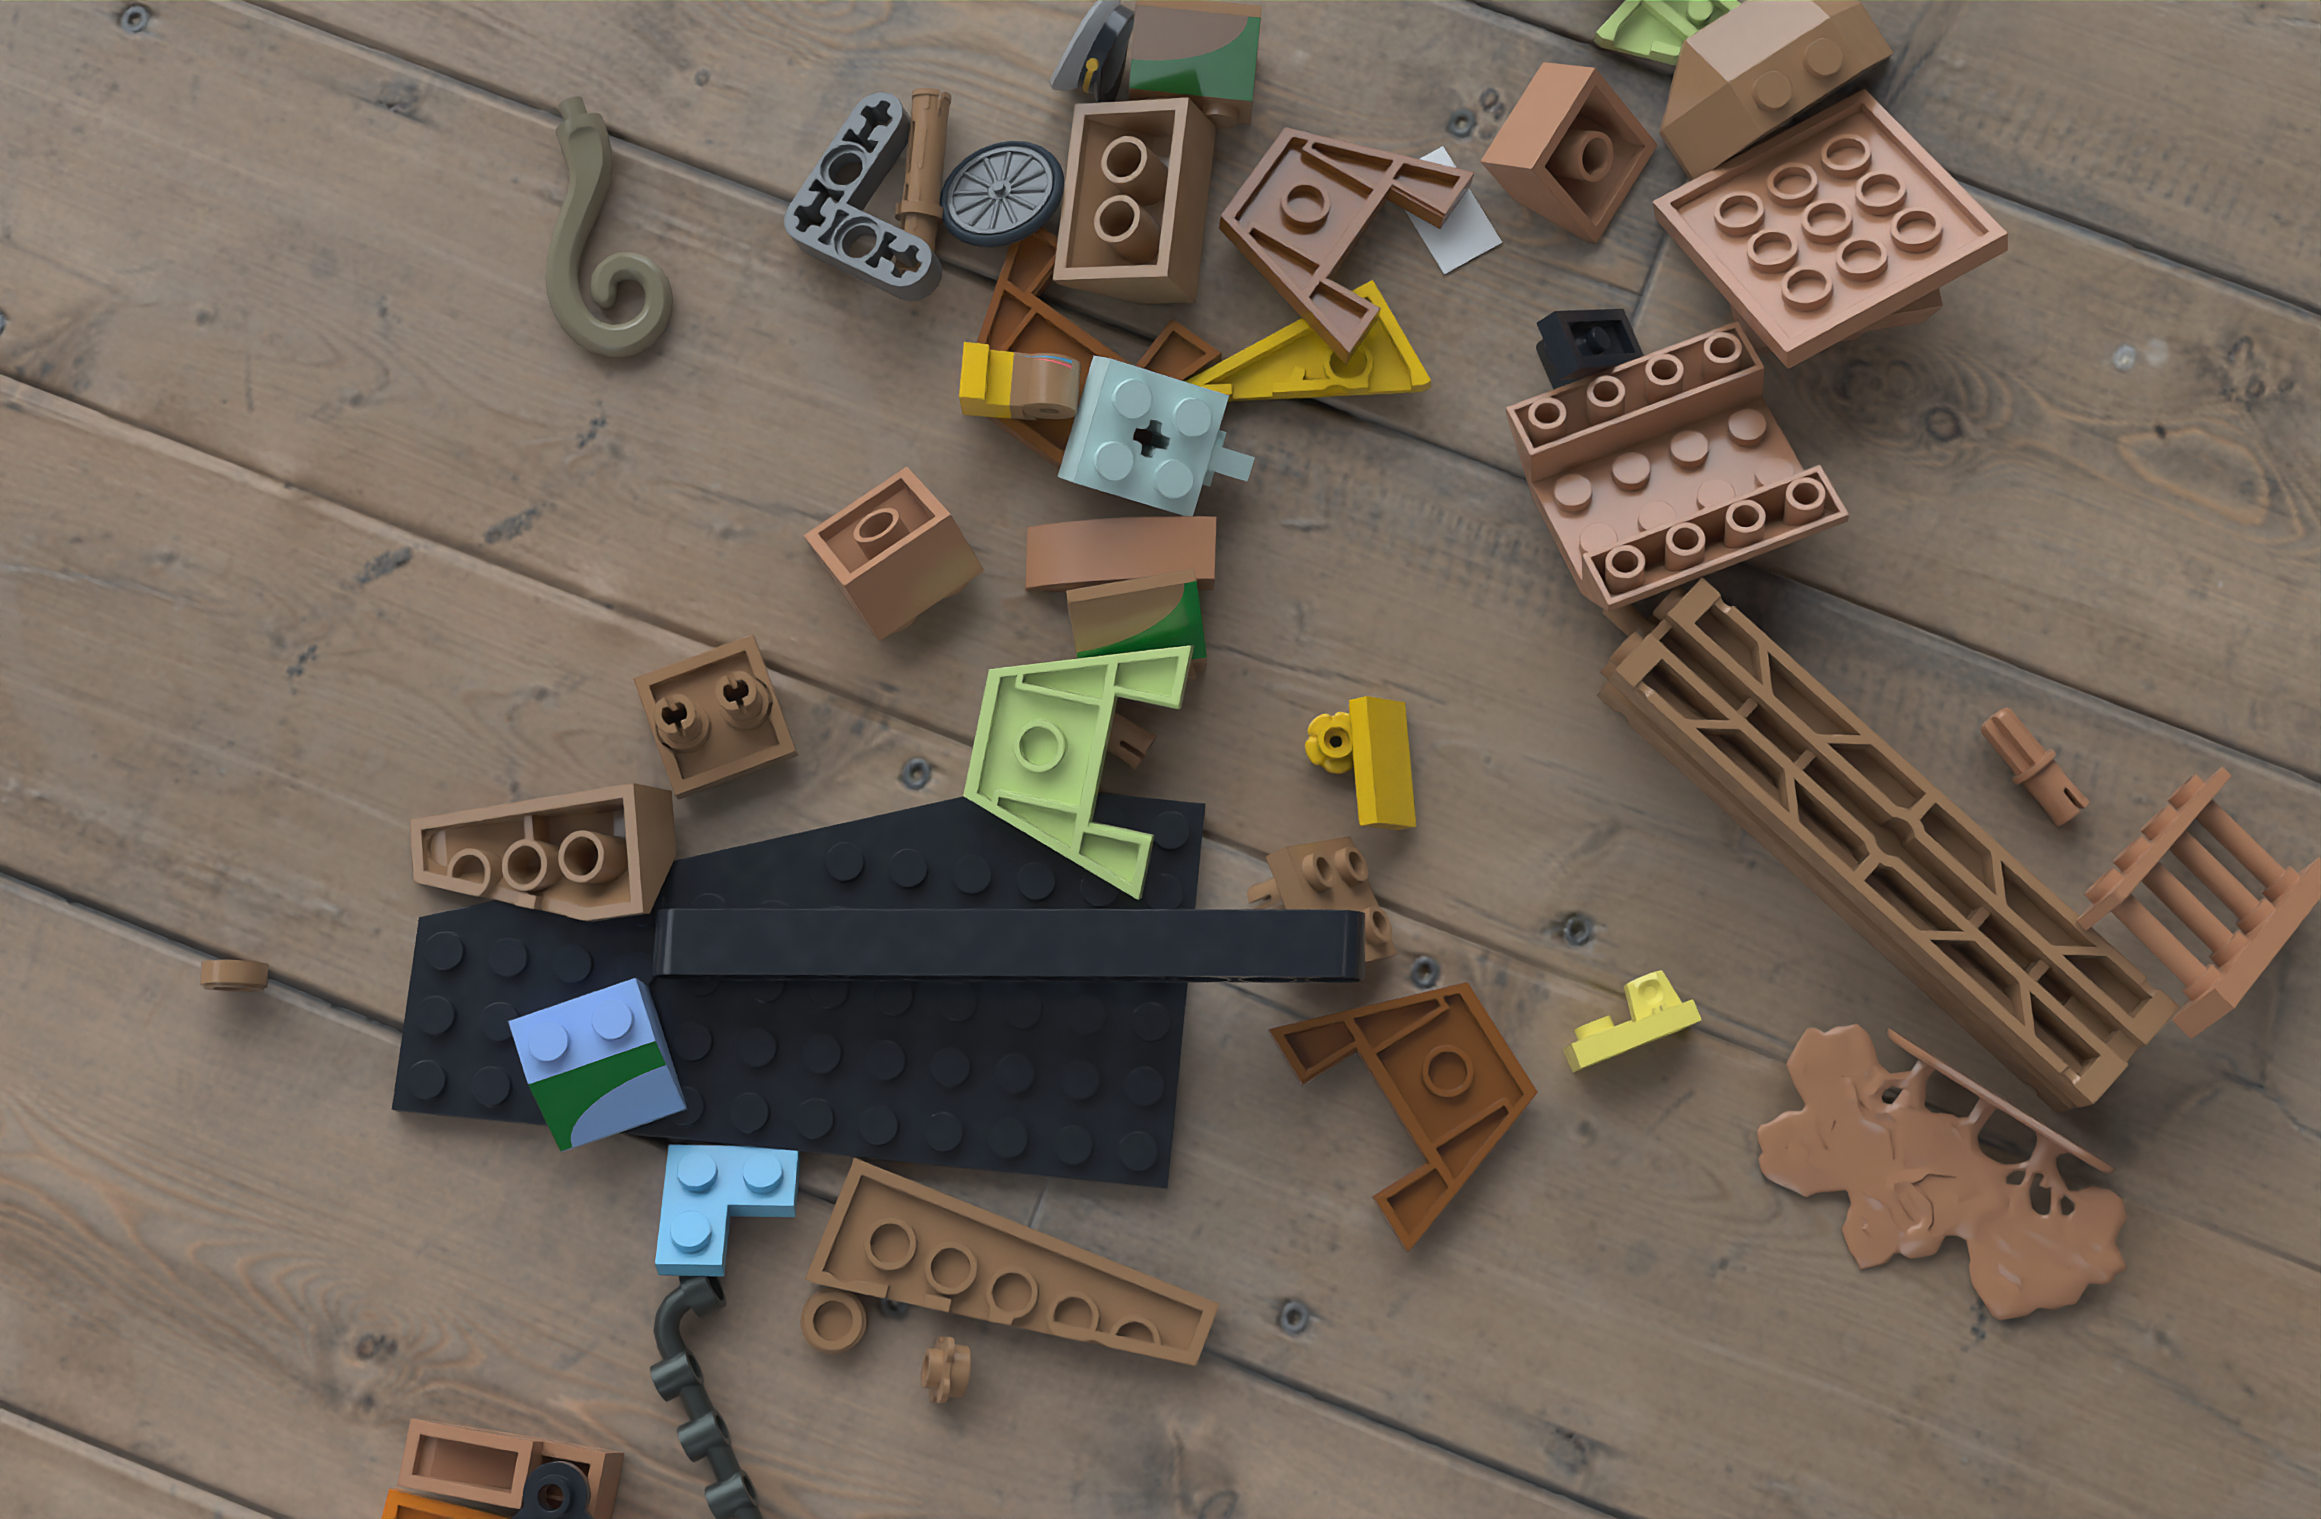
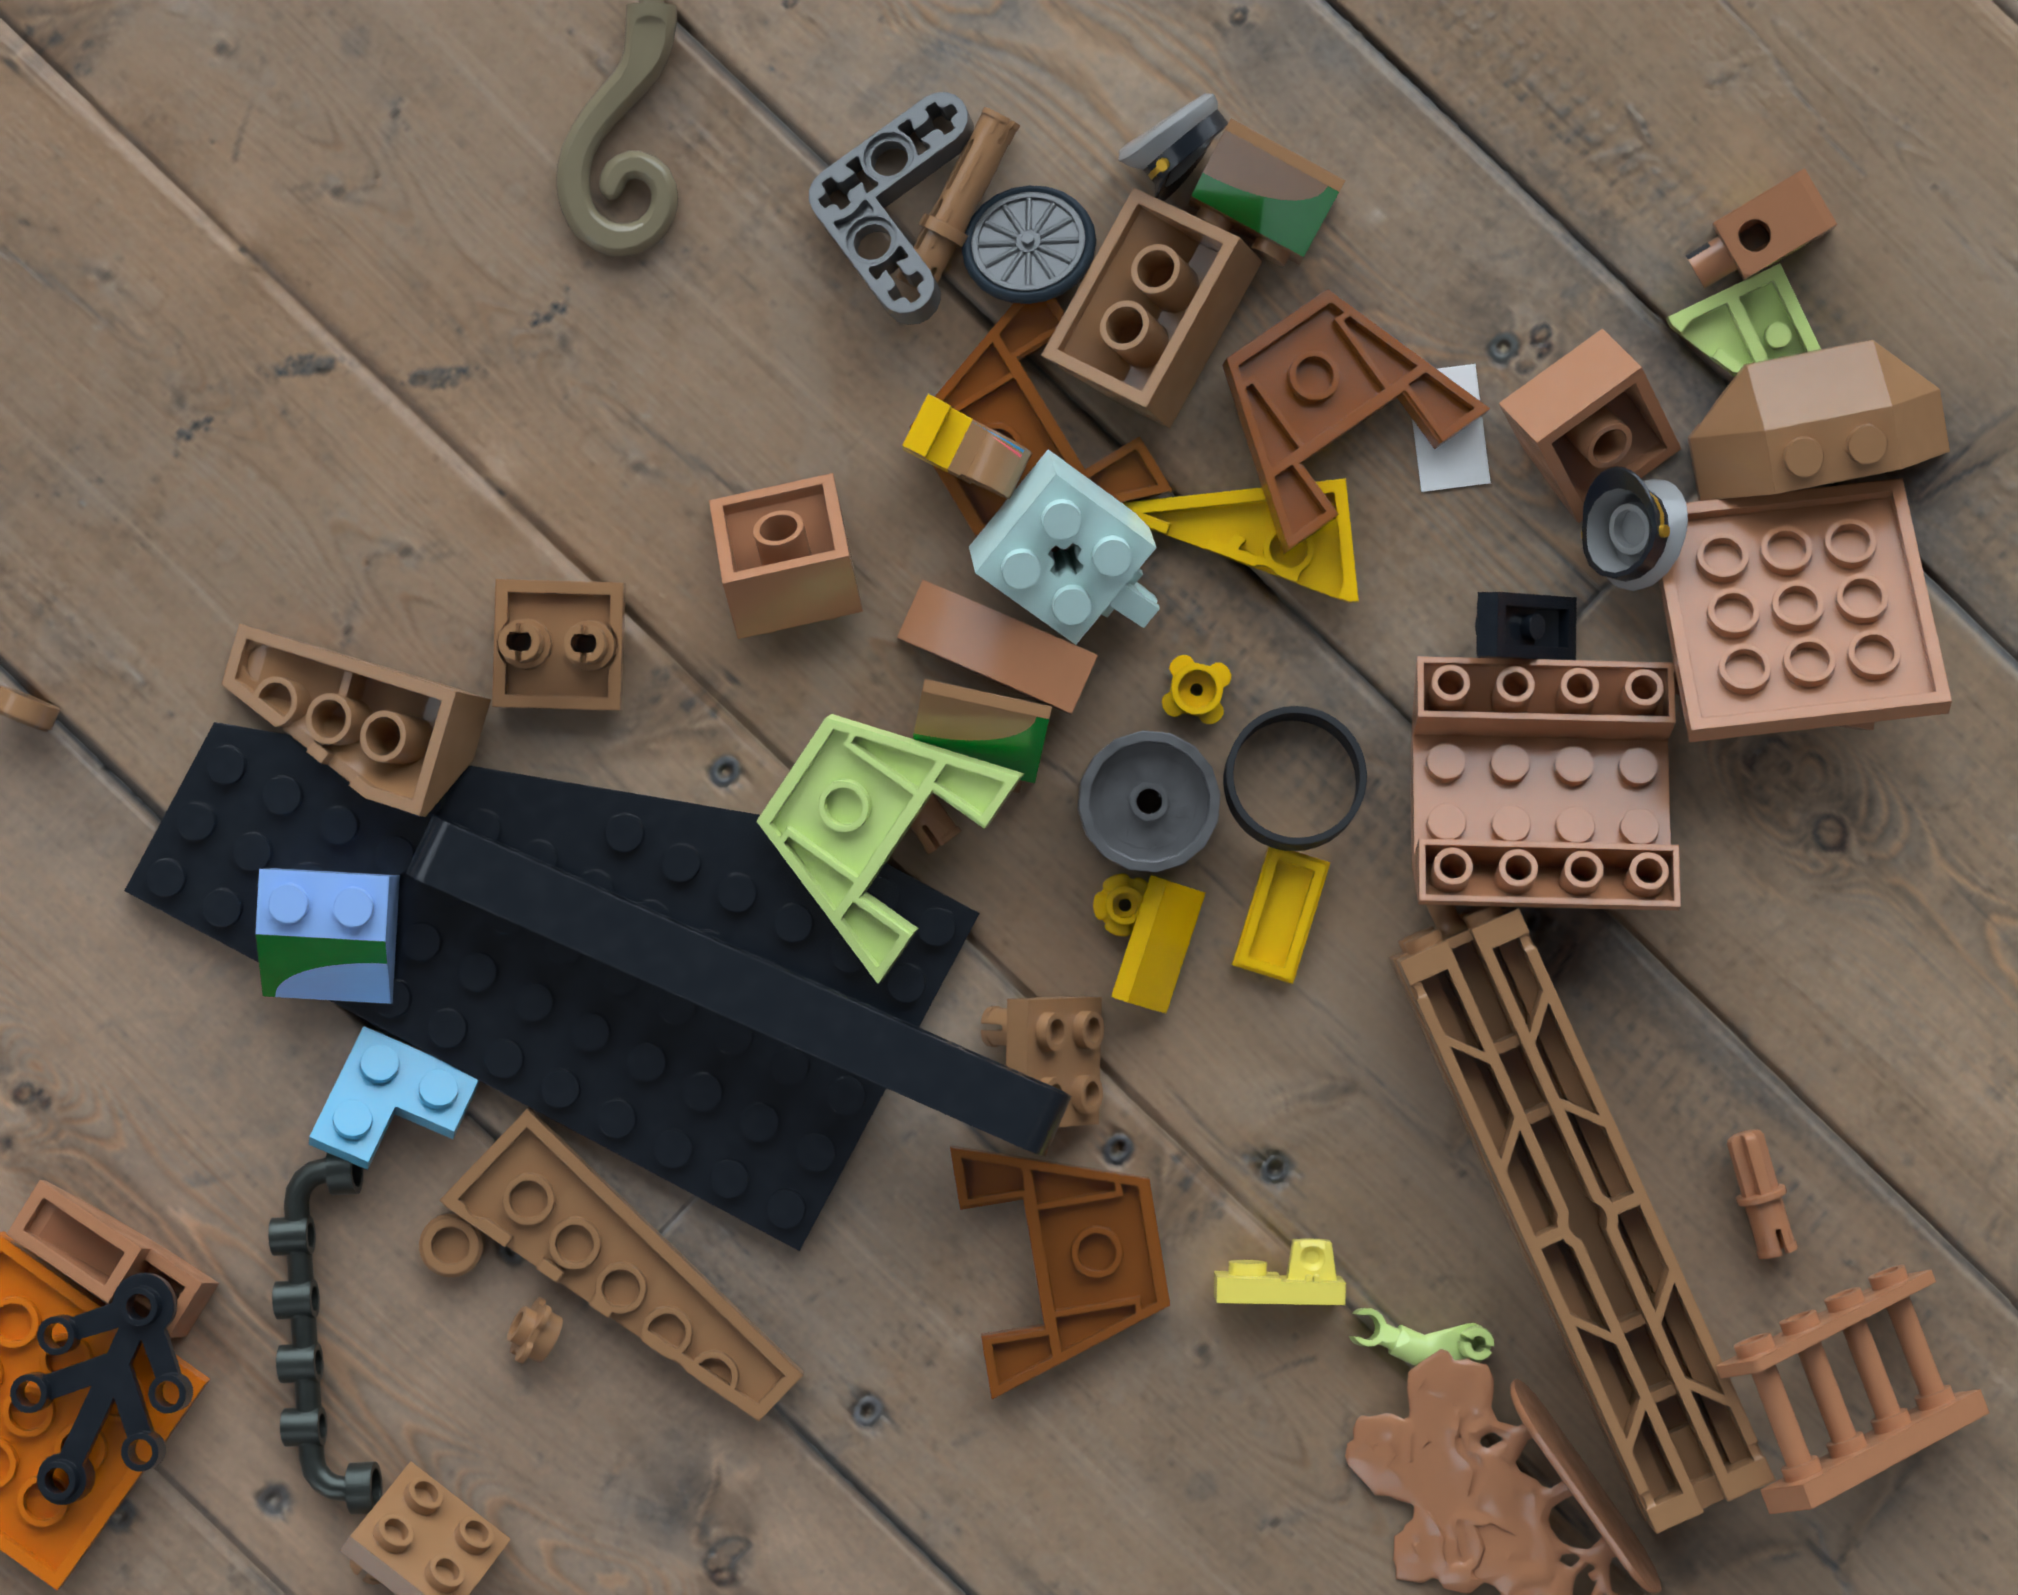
camera: 20 degrees right, 10 degrees up
(1318, 506) = (1207, 704): none -> yellow plate
(1350, 616) = (1182, 783): none -> flat silver wheel
(1448, 505) = (1314, 717): none -> black tyre
(1481, 693) = (1280, 914): none -> yellow tile
(1647, 218) = (1632, 527): none -> light grey piece
(1780, 1040) = (1462, 1341): none -> yellowish green arm

